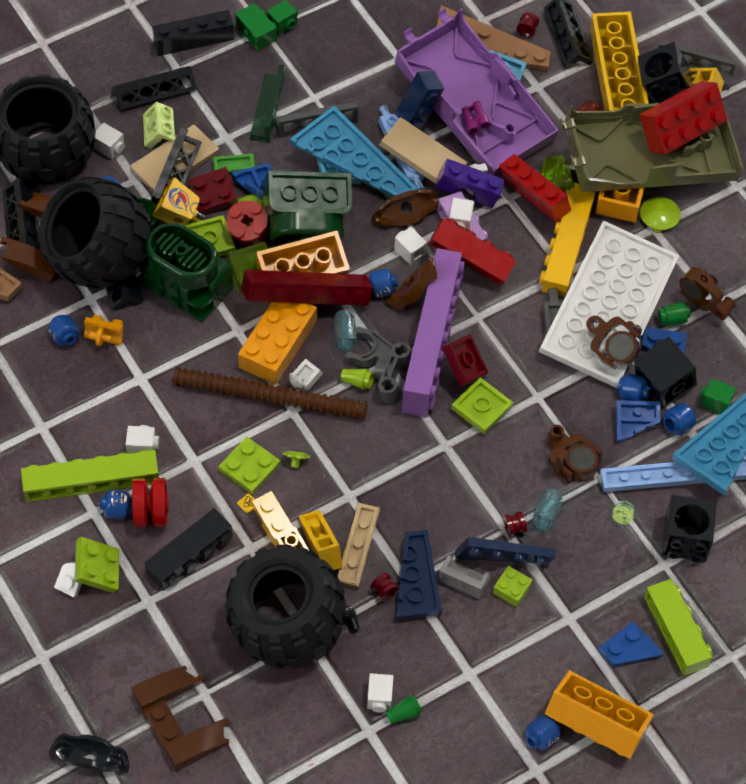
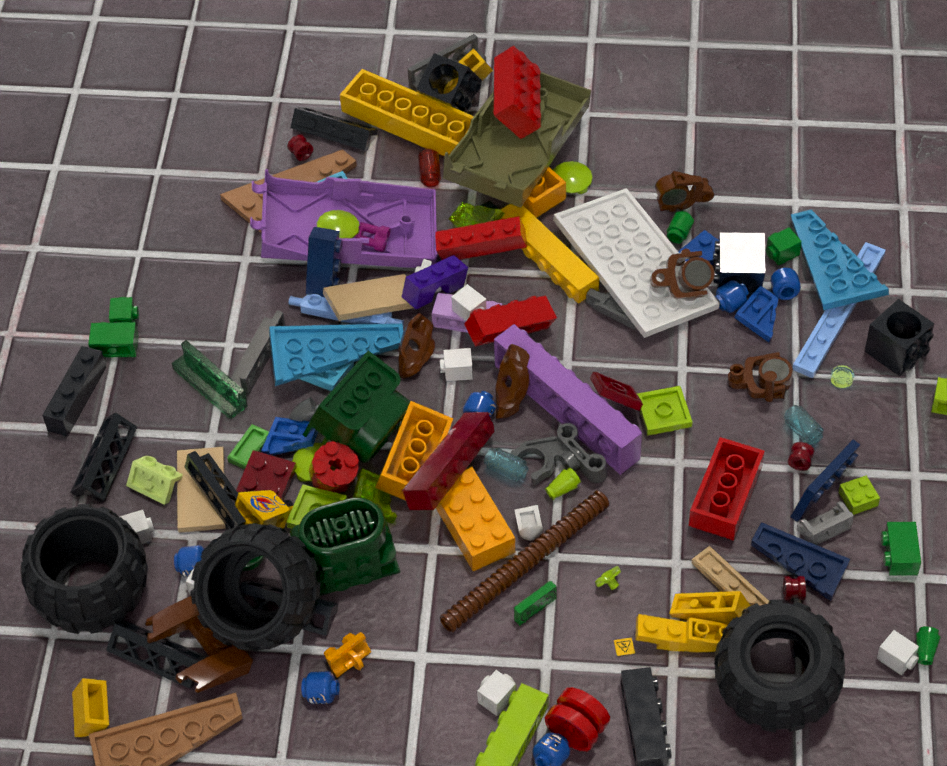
camera: 50 degrees left, 5 degrees down
(236, 421) = (535, 602): none -> green tile
(249, 465) = (587, 621): lime plate -> none
(438, 487) = (726, 488): none -> red brick
(464, 89) = (341, 221): none -> lime dish
(482, 643) = (902, 548): none -> green brick

